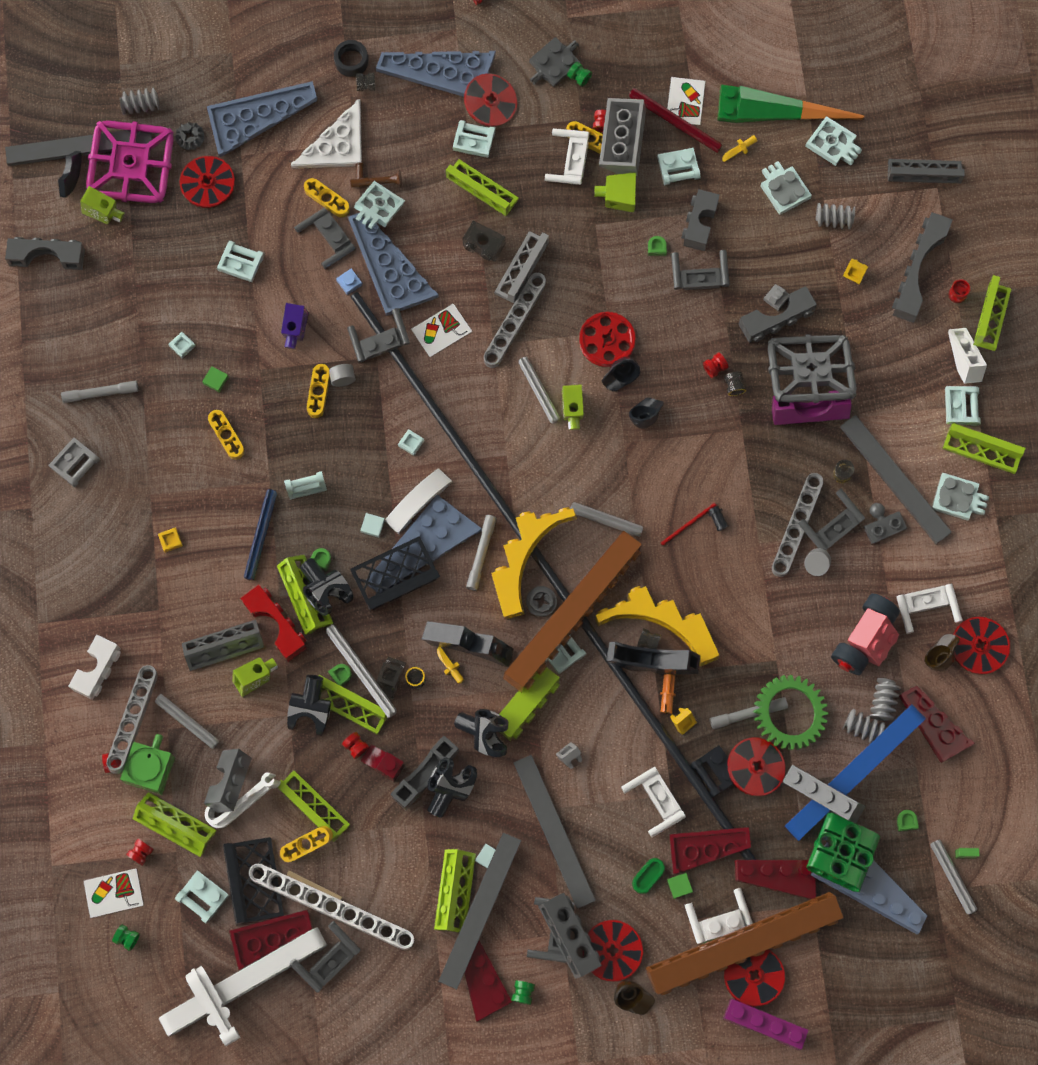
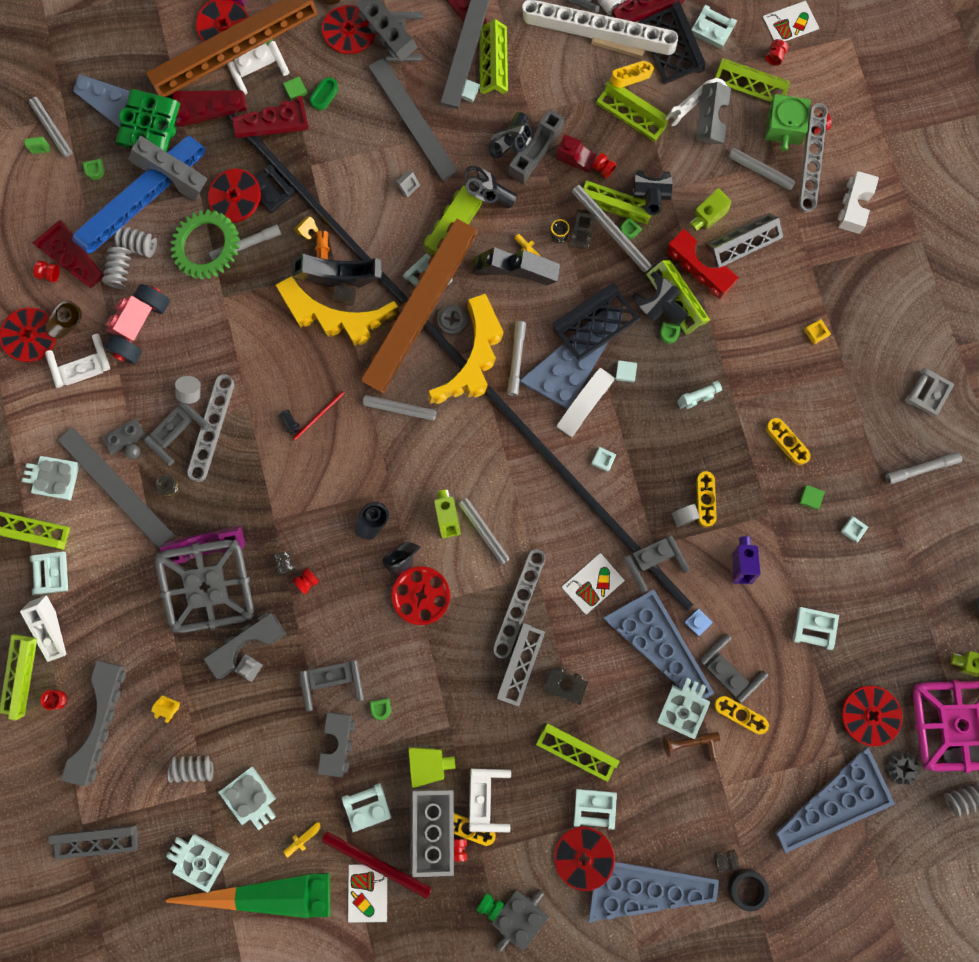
camera: 170 degrees right, 5 degrees up
(260, 534) = (732, 348): dark blue axle -> none
(337, 144) = (741, 781): white tile -> none
(661, 798) = (319, 158): white plate -> none
(959, 708) = (45, 271): none -> red wheel

